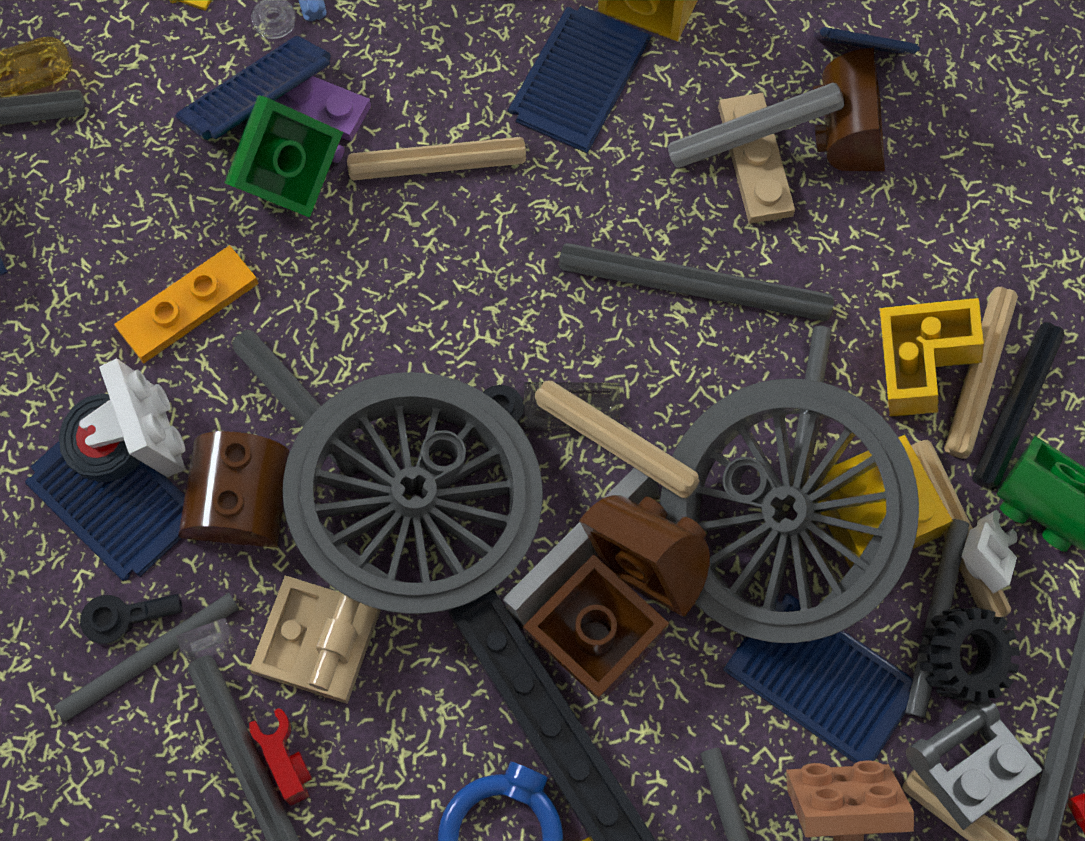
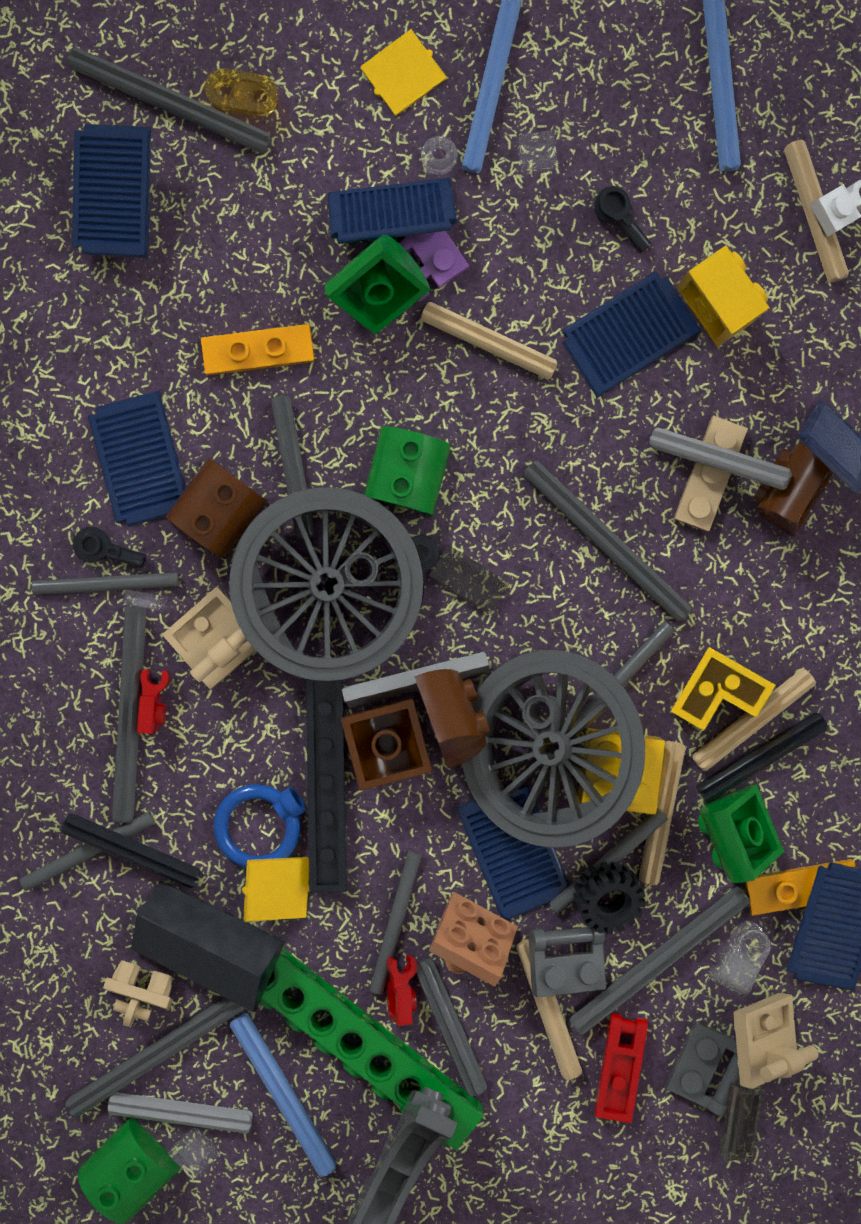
camera: 30 degrees right, 20 degrees up
(117, 430) = (164, 424): white plate -> none
(429, 325) = (407, 469): none -> green brick
(617, 439) = (478, 628): tan axle -> none
(988, 553) = (666, 844): white plate -> none

